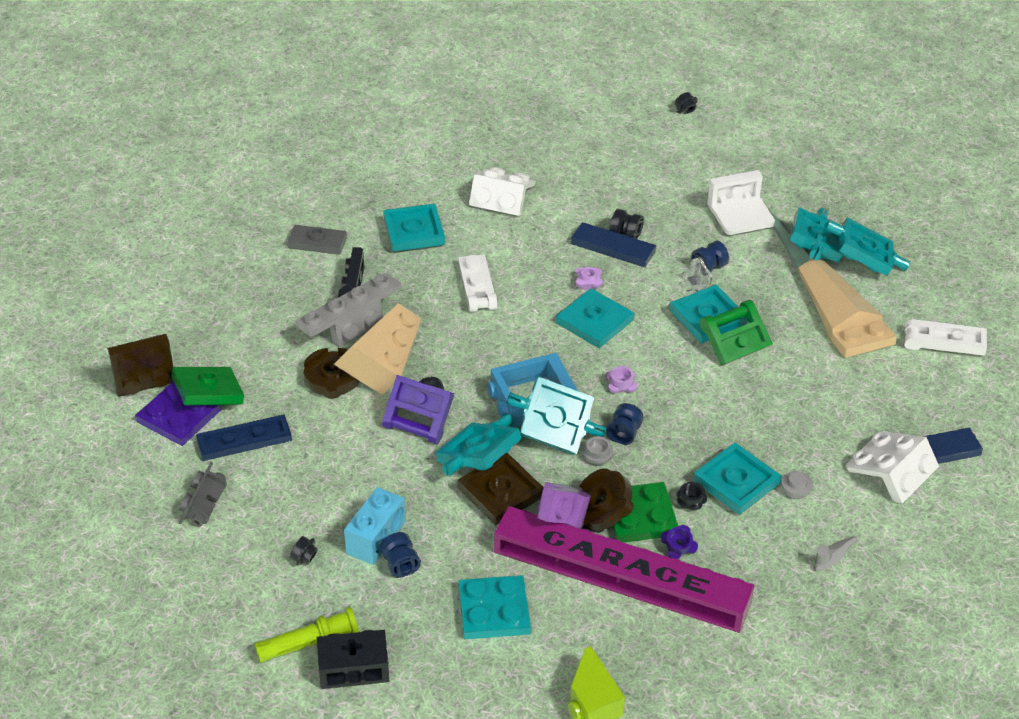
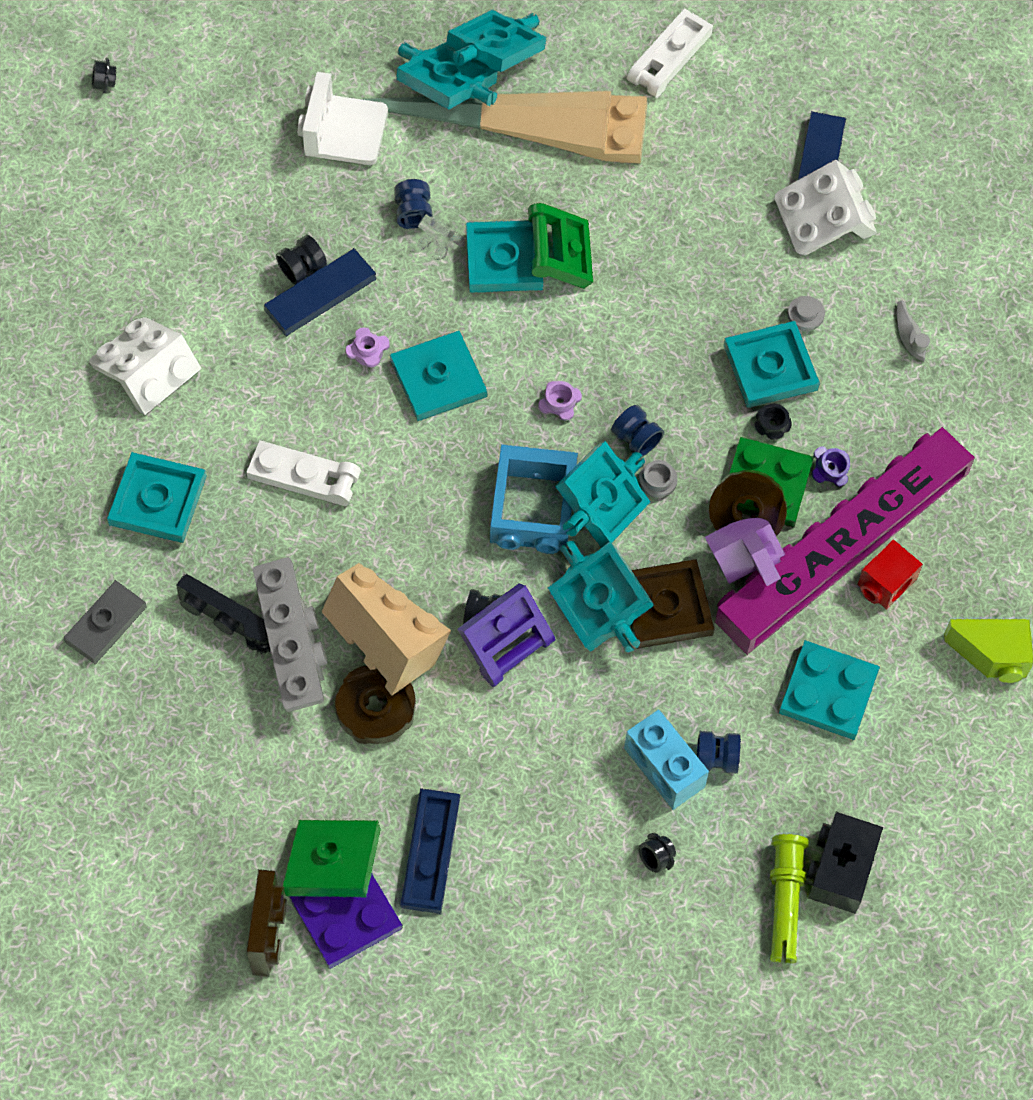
camera: 65 degrees left, 20 degrees up
(196, 506) = (497, 924): dark grey hinge -> none
(609, 604) = (889, 575): none -> red brick

